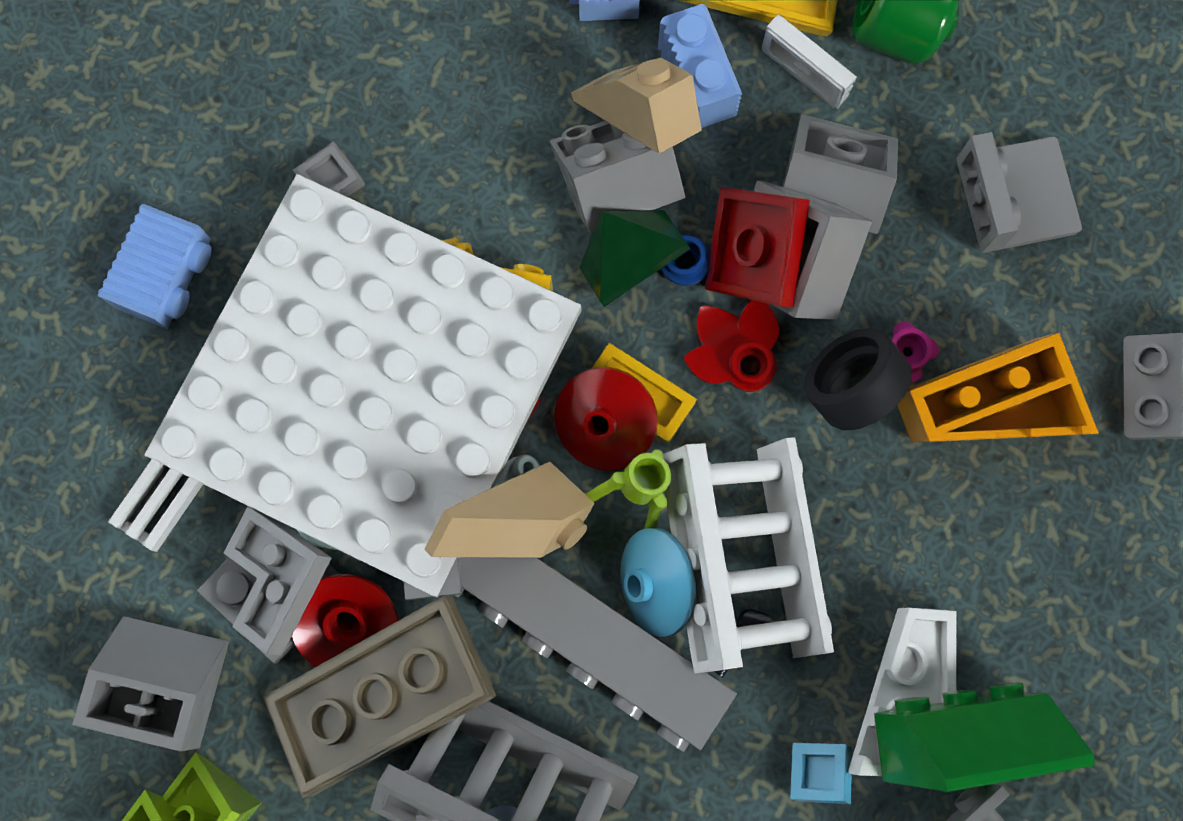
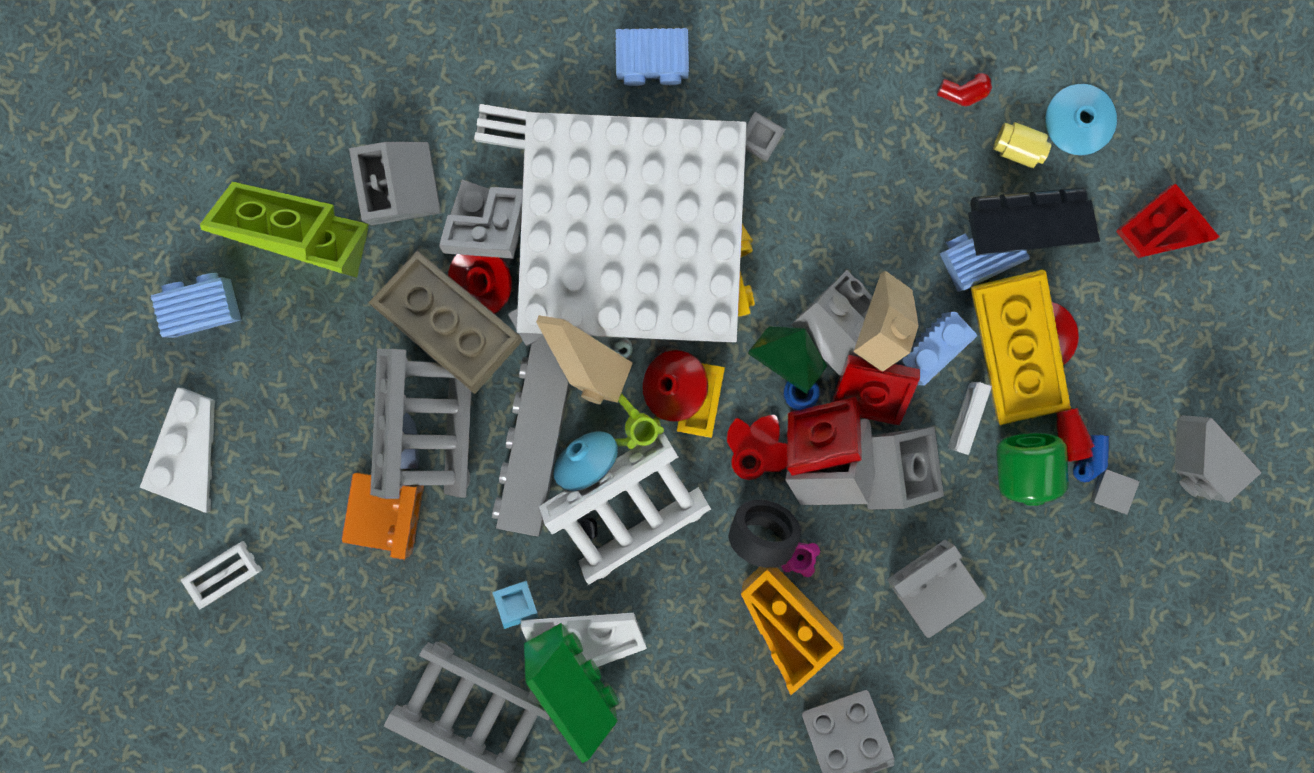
camera: 65 degrees right, 10 degrees up
(726, 154) = (880, 394): none -> red tile

